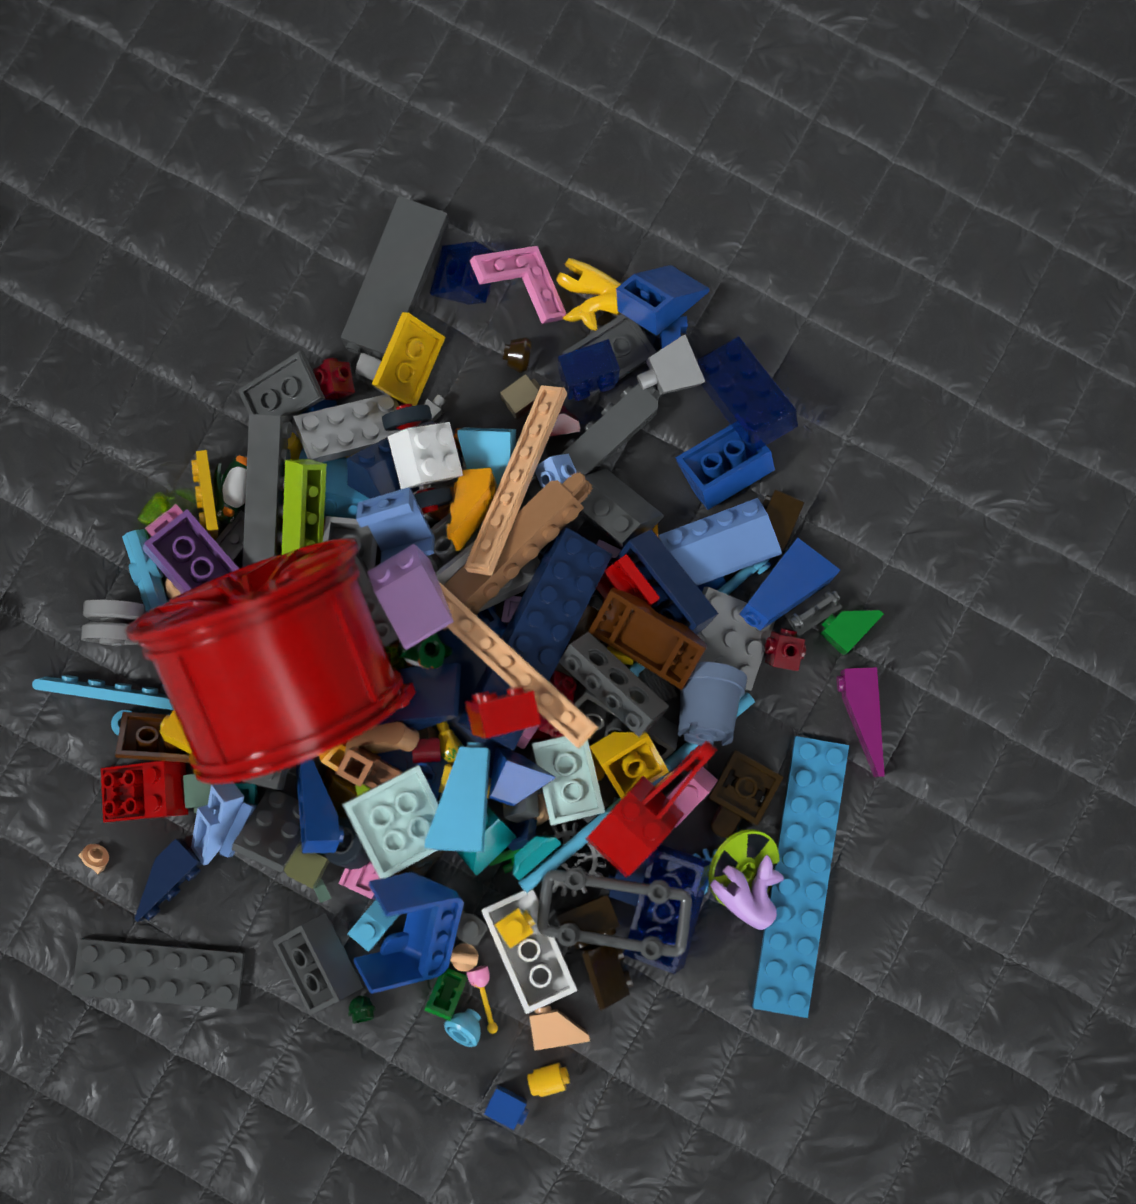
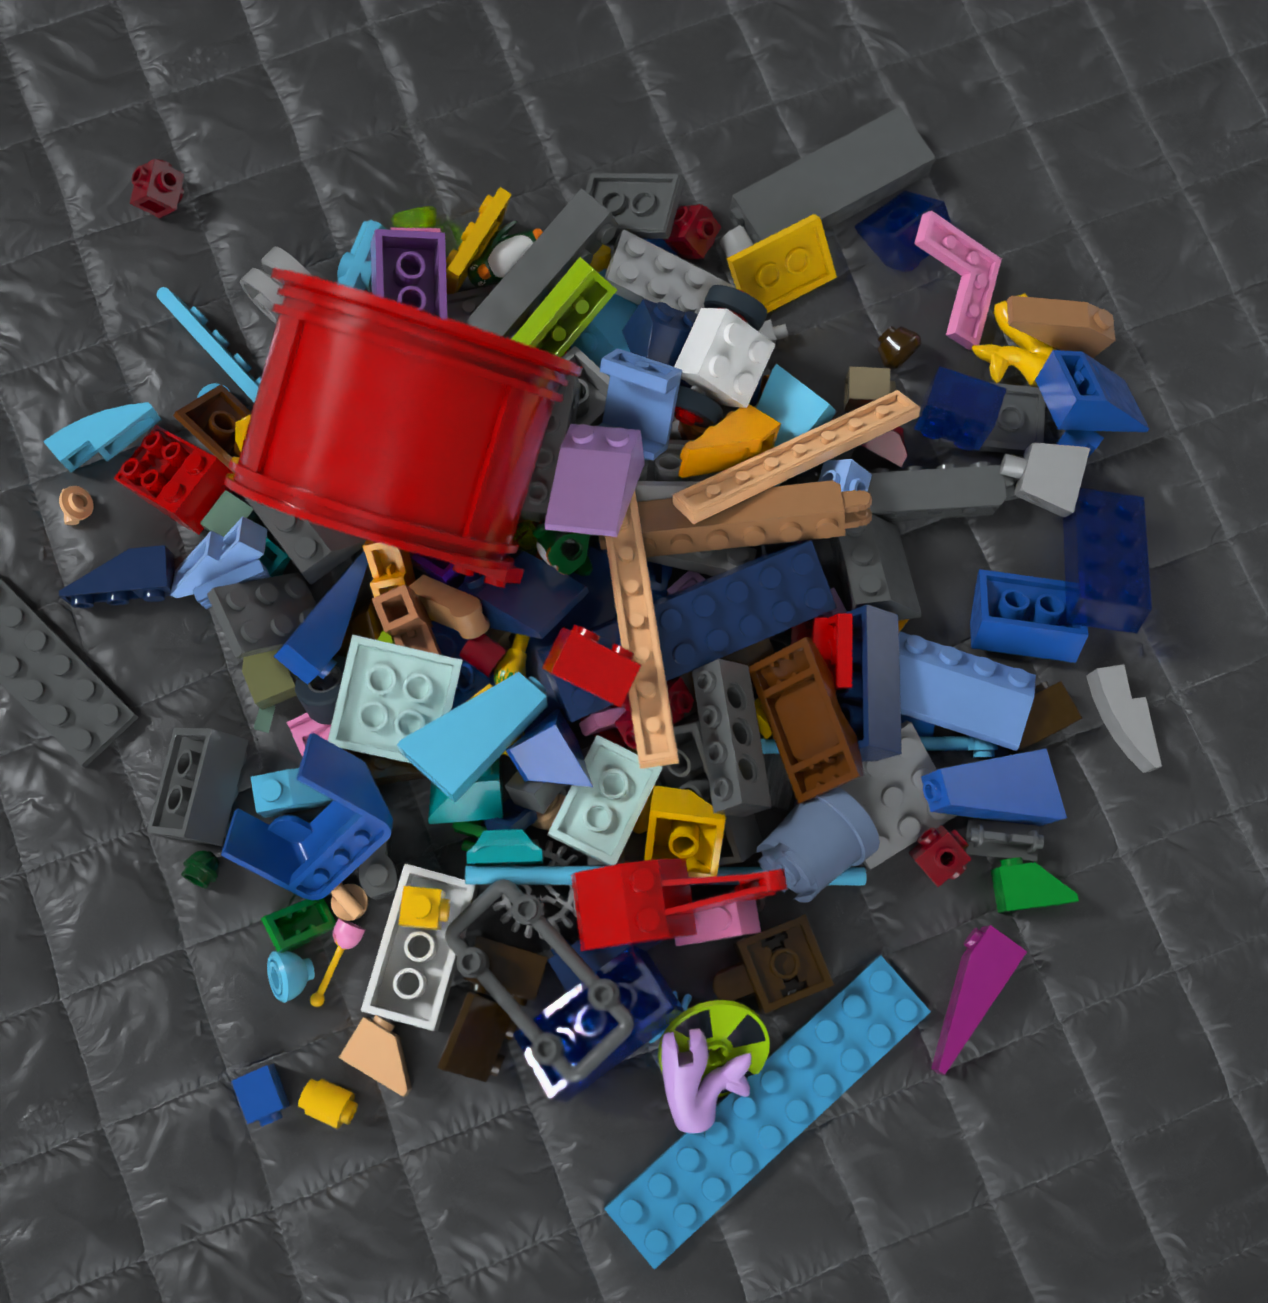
camera: 35 degrees right, 5 degrees down
(73, 801) = (102, 433): none -> medium azure slope
(609, 262) = (1063, 323): none -> medium nougat slope
(828, 479) = (1125, 717): none -> light grey slope

